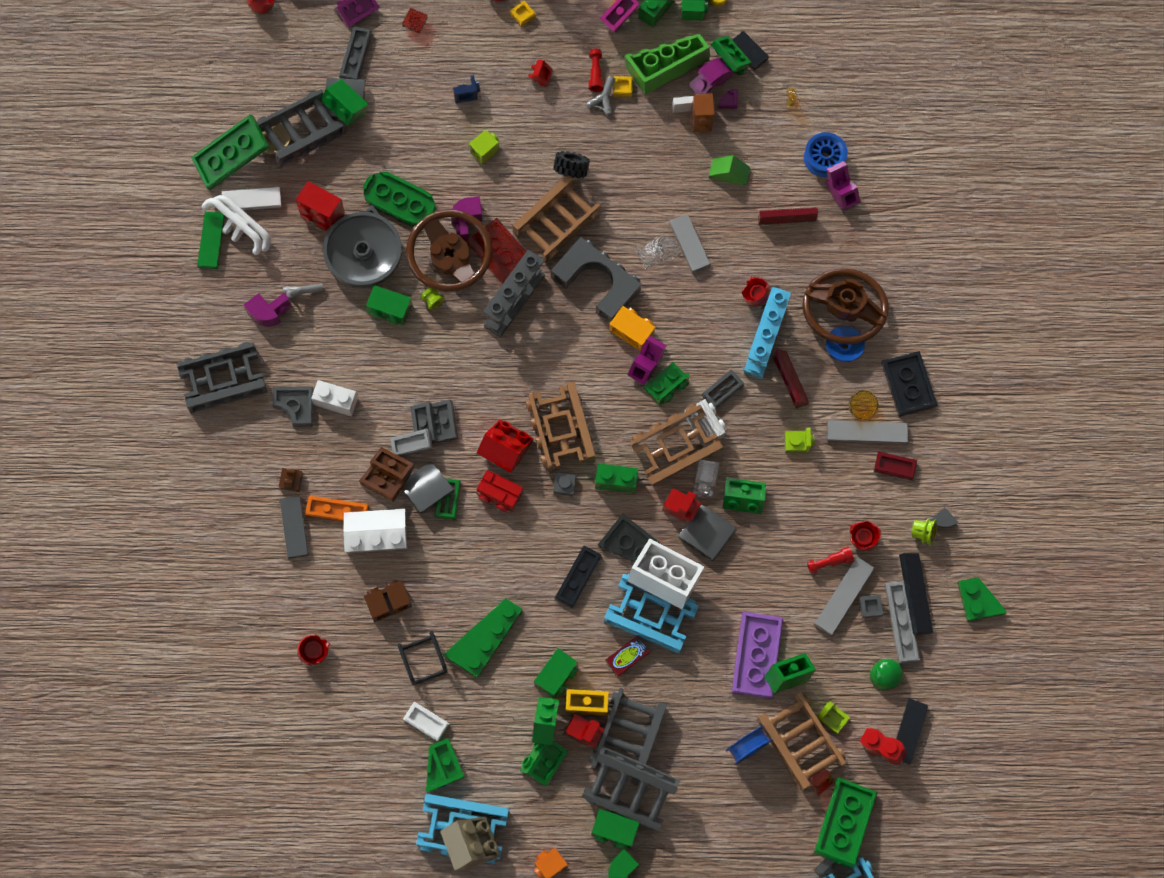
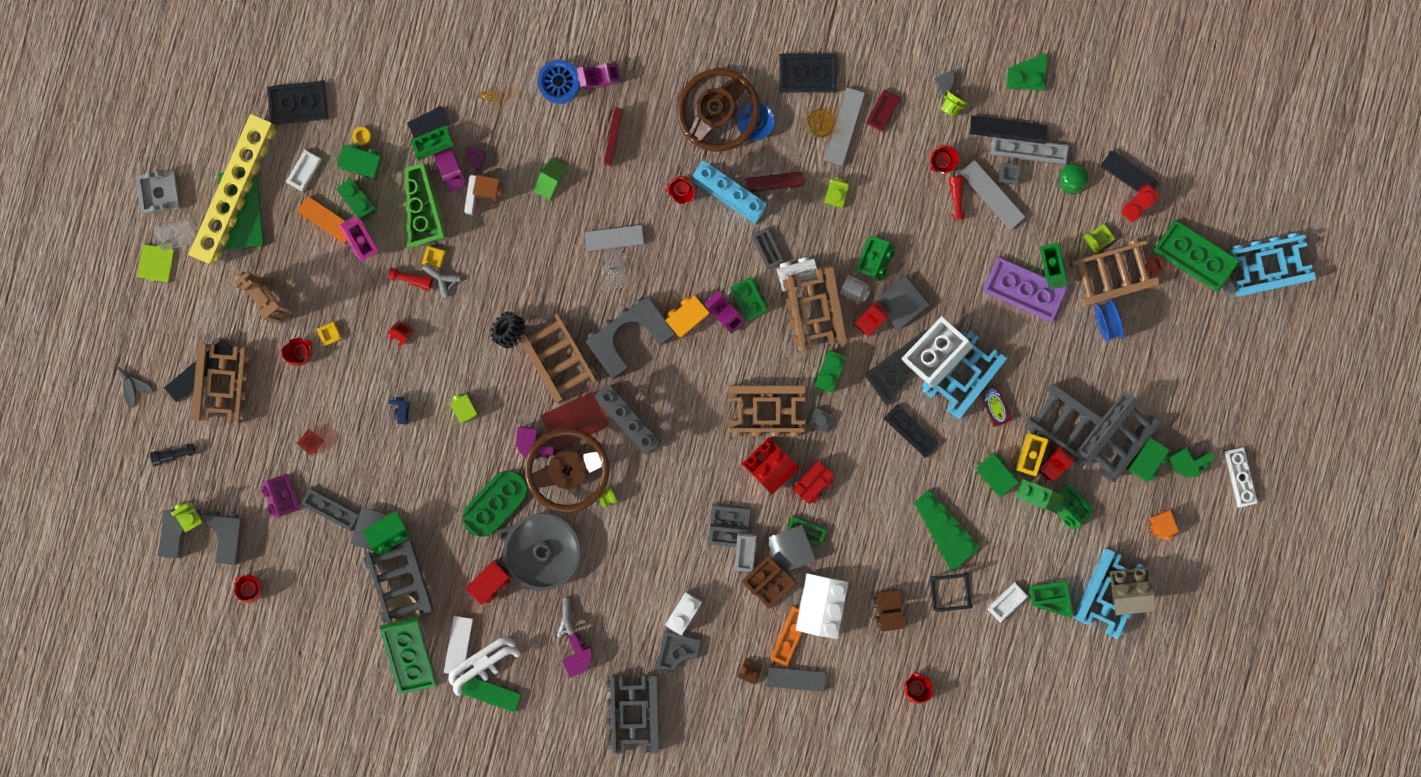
camera: 70 degrees left, 15 degrees up
(388, 305) = (603, 540): green brick -> none

